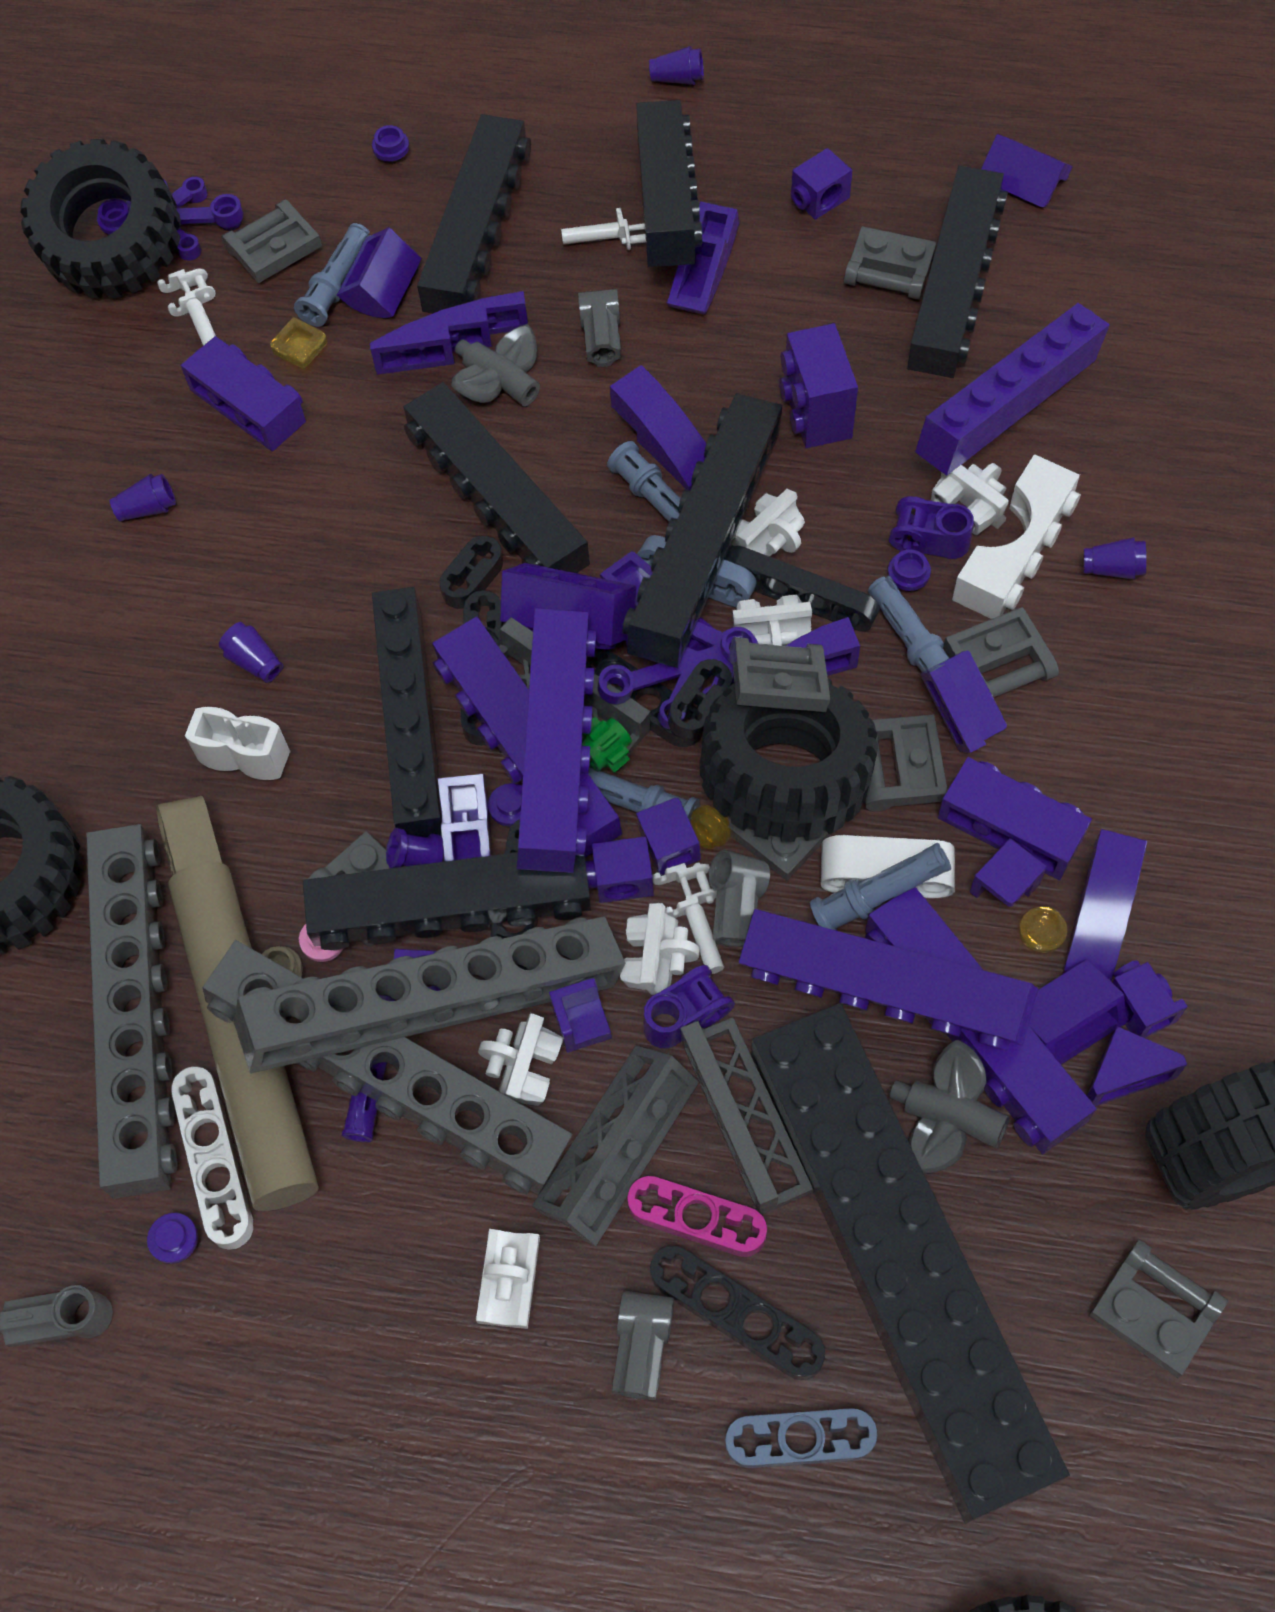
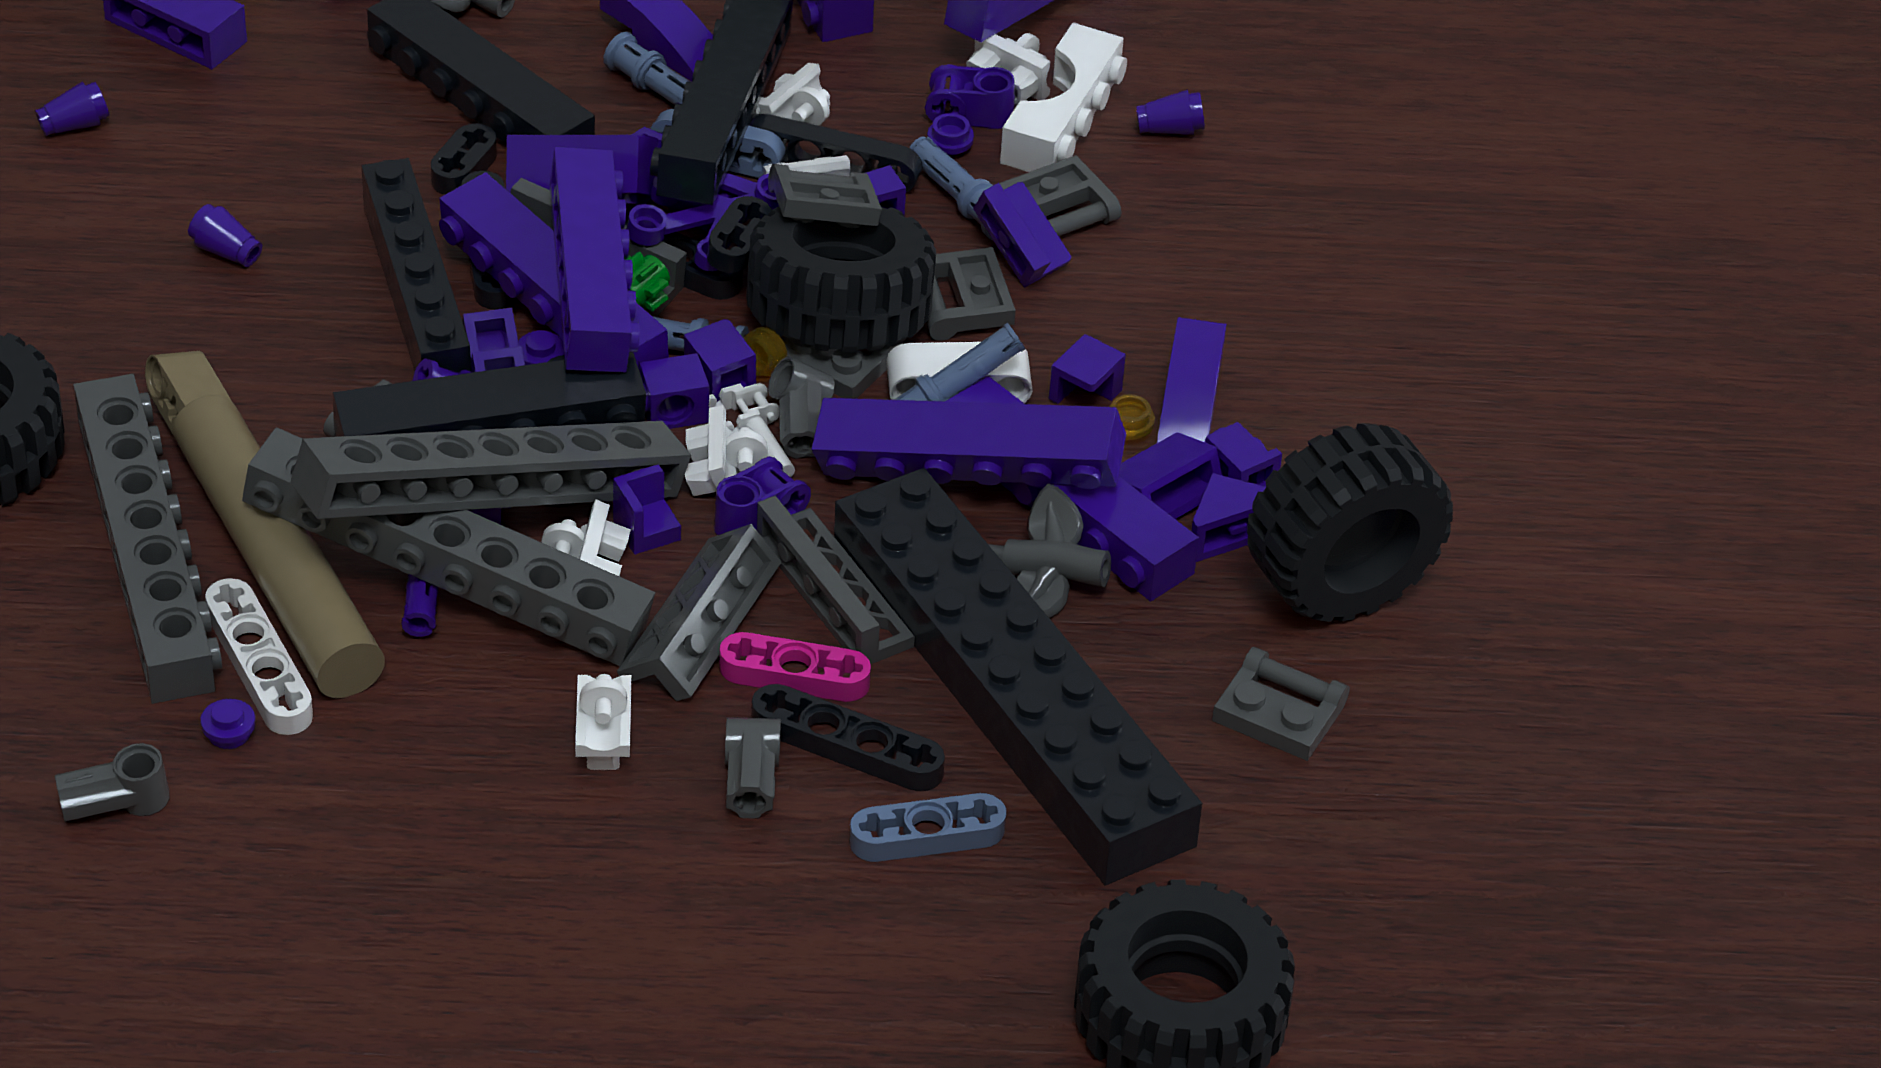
camera: 15 degrees left, 20 degrees down
(237, 743) = (228, 305): white brick -> none
(1001, 808) = (1056, 314): dark purple brick -> none

